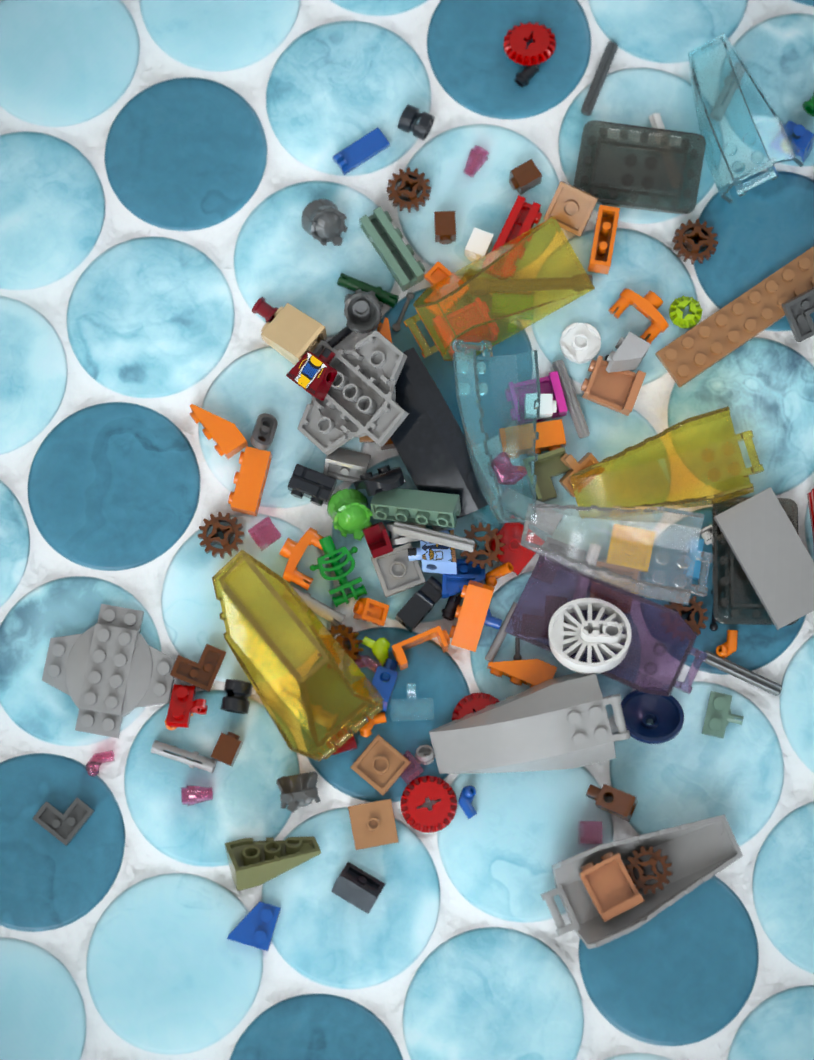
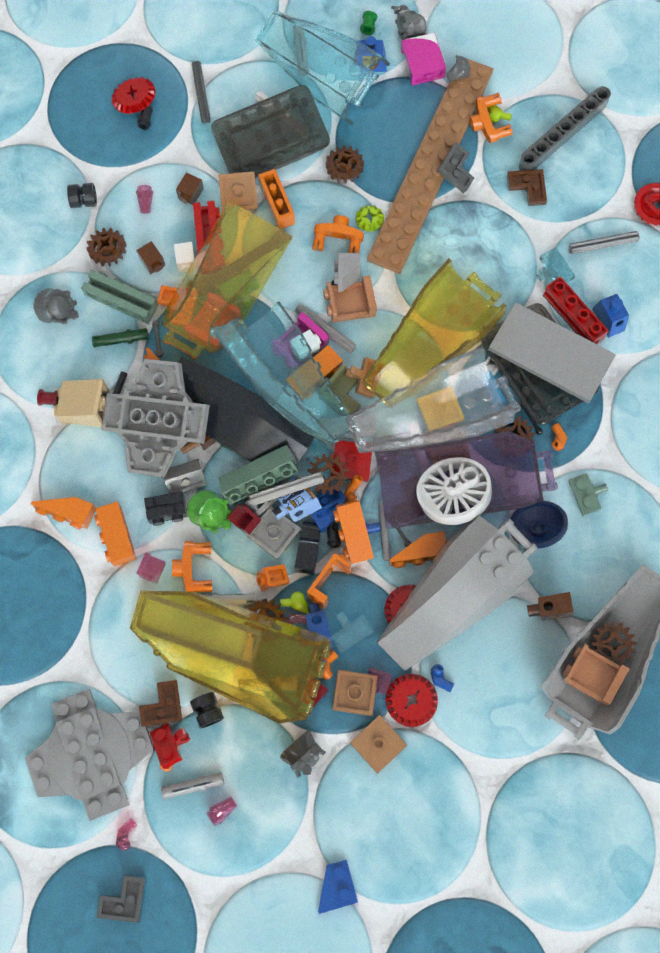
camera: 30 degrees left, 5 degrees down
(227, 748) = (224, 757): reddish brown brick -> none
(228, 532) = (120, 583): reddish brown gear -> none
(261, 861) = (306, 832): olive wedge -> none
(264, 431) = (102, 489): dark grey plate -> none
(314, 373) = (116, 420): torso -> none
(330, 551) = (212, 549): green torso -> none
(358, 887) = (398, 802): black panel -> none
(361, 151) = (52, 240): blue hinge -> none
(362, 311) = (125, 354): dark grey hair -> none
(384, 480) = (220, 470): black slope -> none
(424, 754) = (384, 662): light grey plate -> none
(505, 471) = (315, 405): clear pink panel -> none
(580, 342) = (306, 284): white tile -> none
(590, 832) = (550, 643): clear pink panel -> none
(743, 673) = (585, 452): dark grey axle -> none

